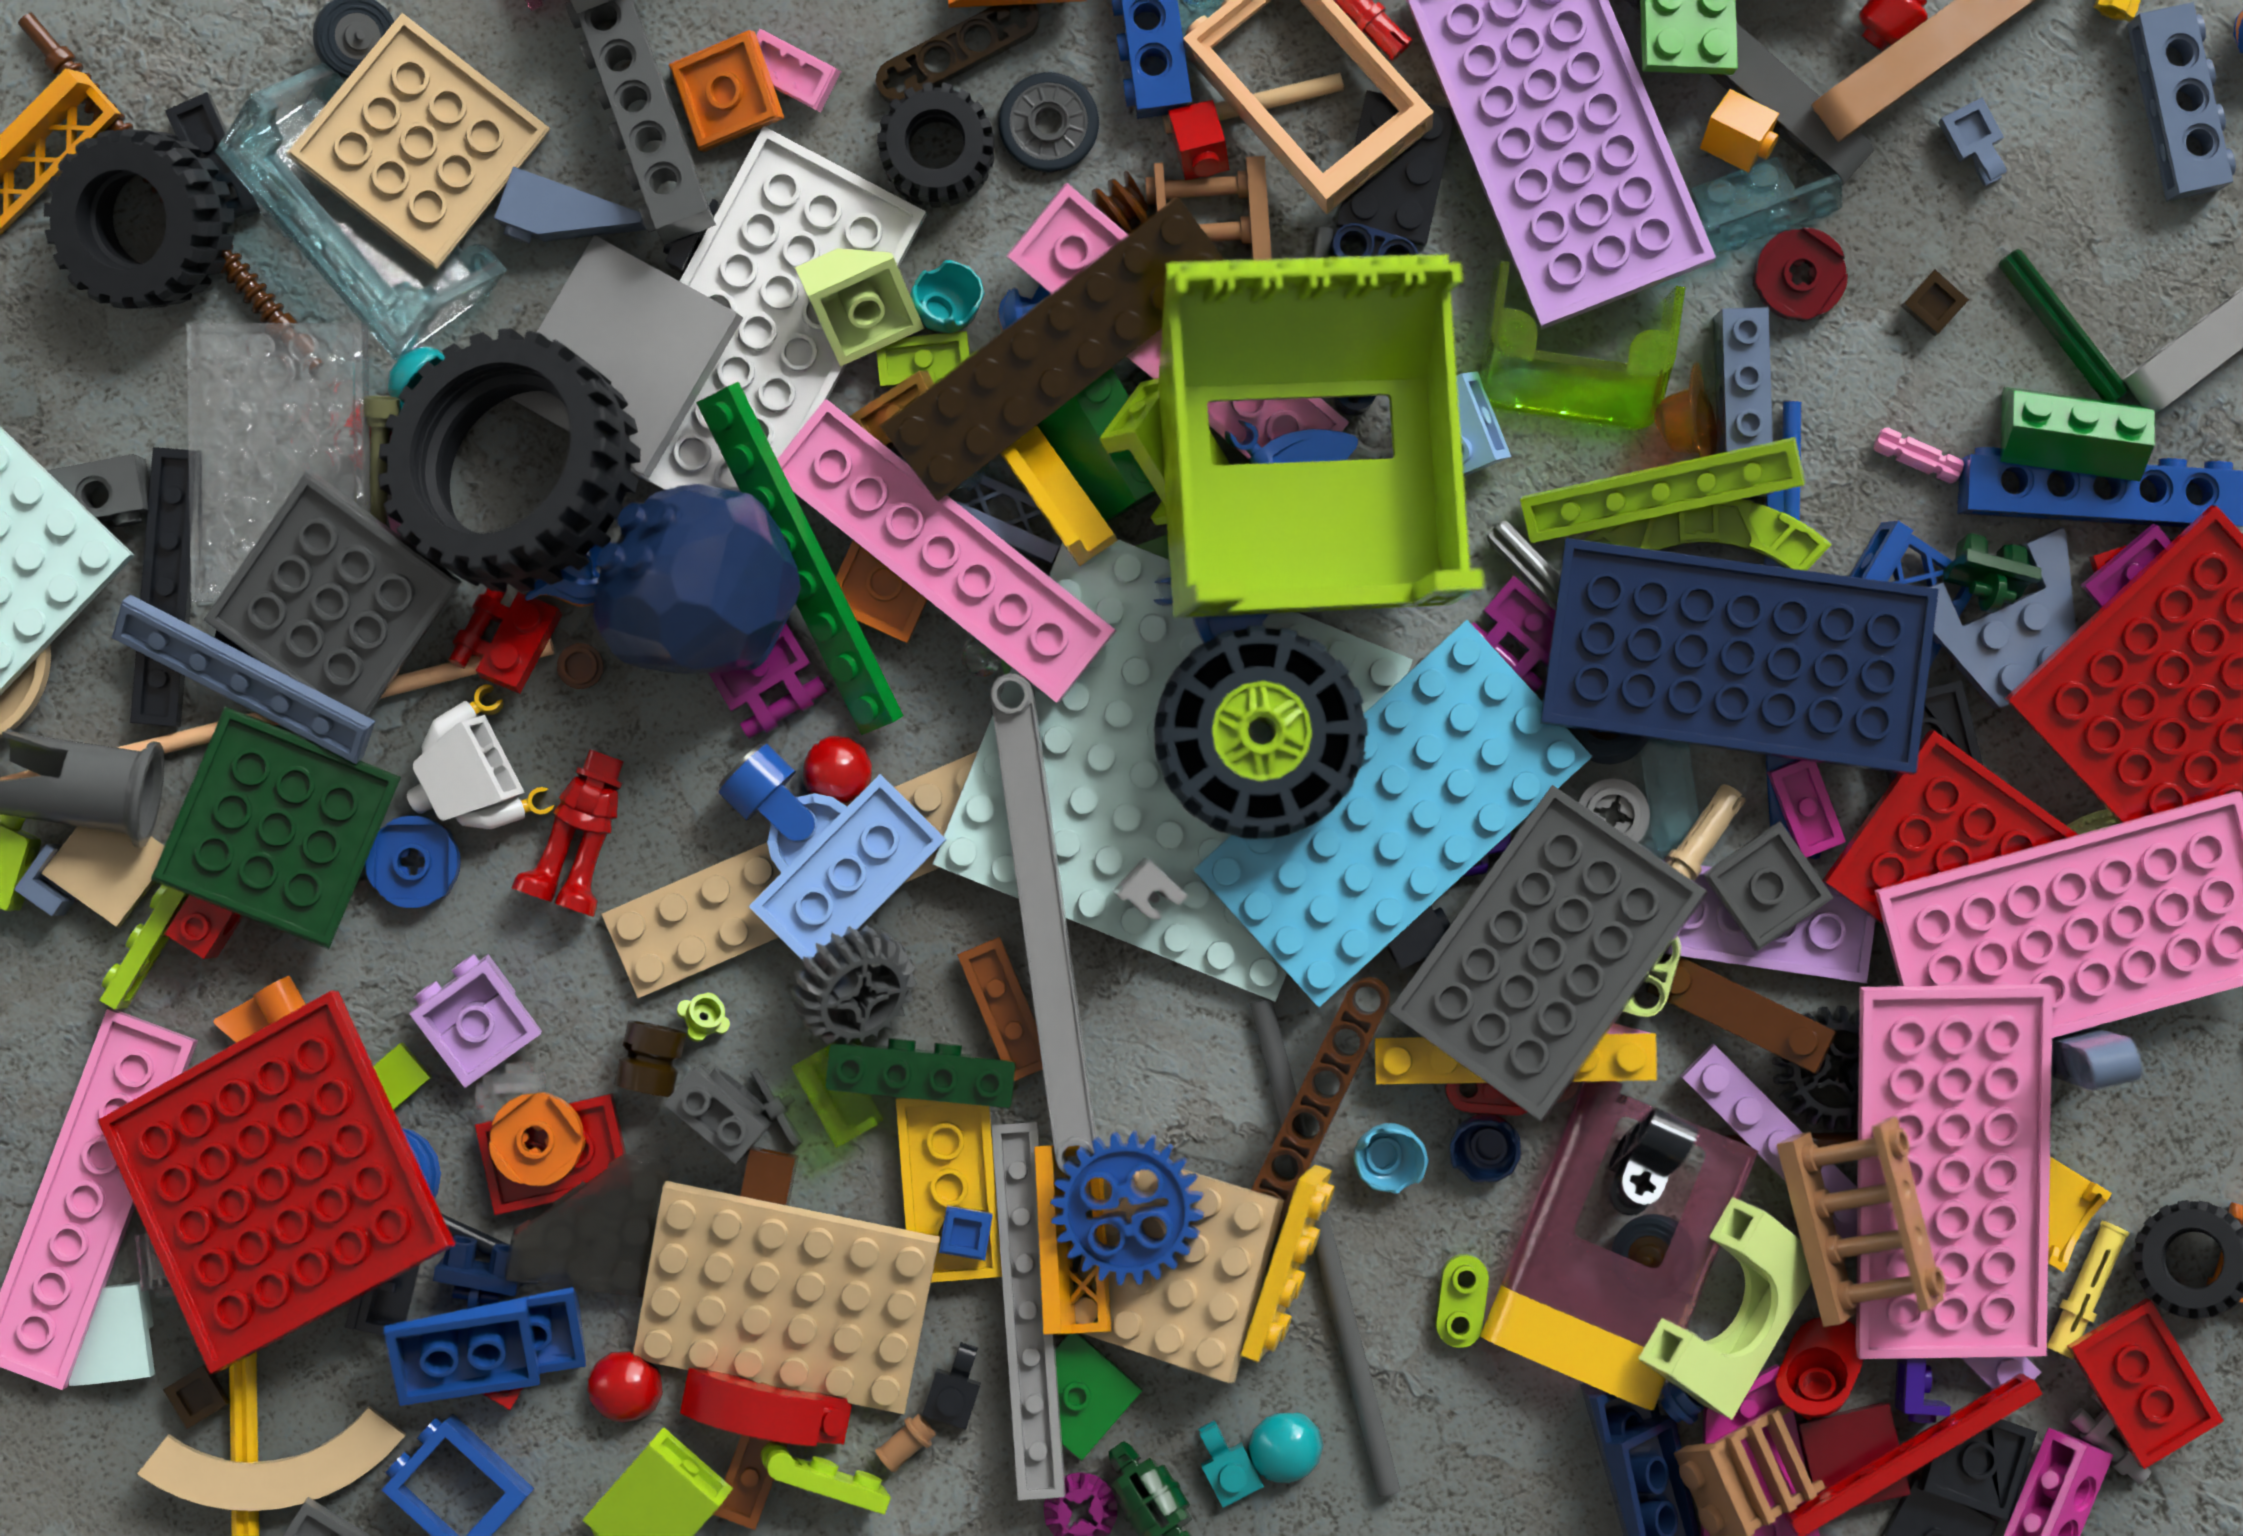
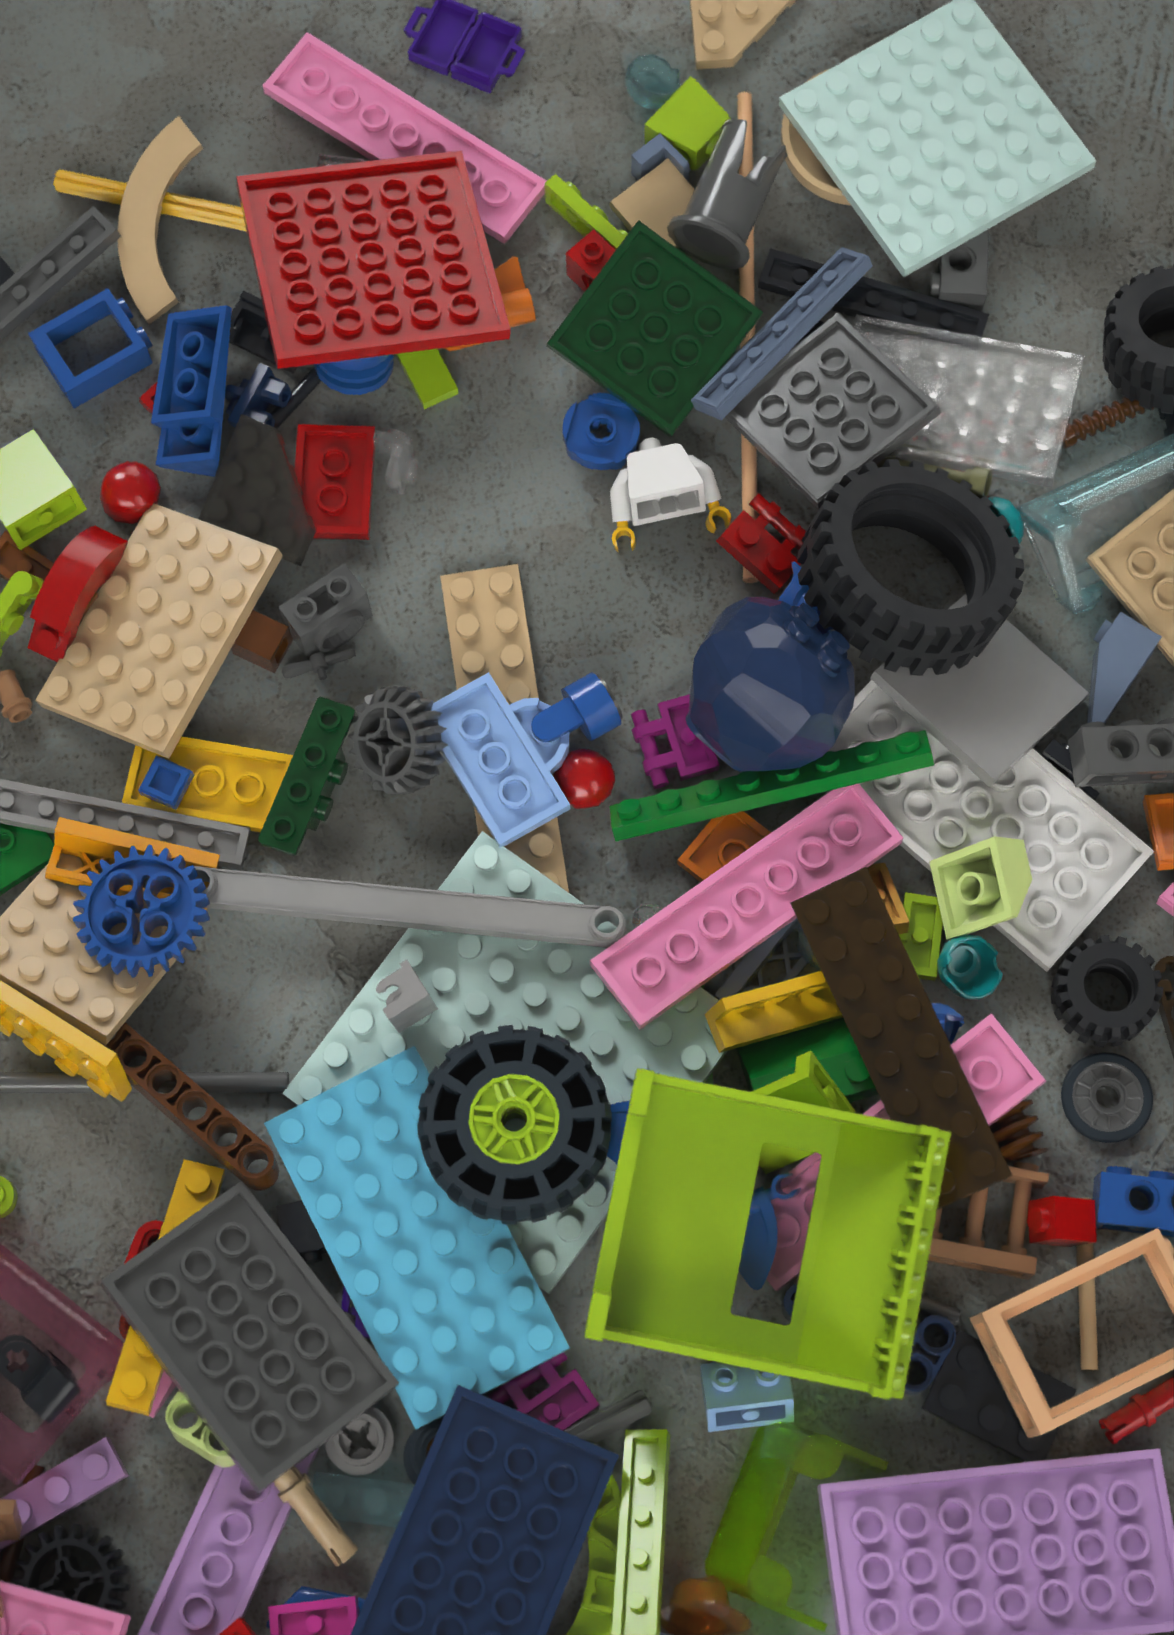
camera: 110 degrees right, 15 degrees down
(117, 1338) = (289, 135): light aqua slope -> none
(196, 1396) = (222, 178): dark brown plate -> none
(474, 1019) = (460, 445): lavender plate -> none
(510, 1133) = (345, 487): orange plate -> none
(580, 666) = (725, 593): reddish brown plate -> none
(588, 806) = (608, 572): red piece -> none
(650, 1058) = (390, 572): dark brown wheel -> none
(708, 1005) = (419, 628): lime plate -> none
(841, 1113) = (294, 706): clear neon green hinge -> none
(952, 1392) = (42, 744): black plate -> none
(1003, 1005) = (351, 861): dark orange plate -> none
(1390, 1158) = (117, 1155): medium azure hair -> none
(1485, 1148) = (99, 1241): dark blue hair -> none
(1748, 1015) = (139, 1513): reddish brown plate -> none
(1767, 886) = (251, 1562): dark grey plate -> none

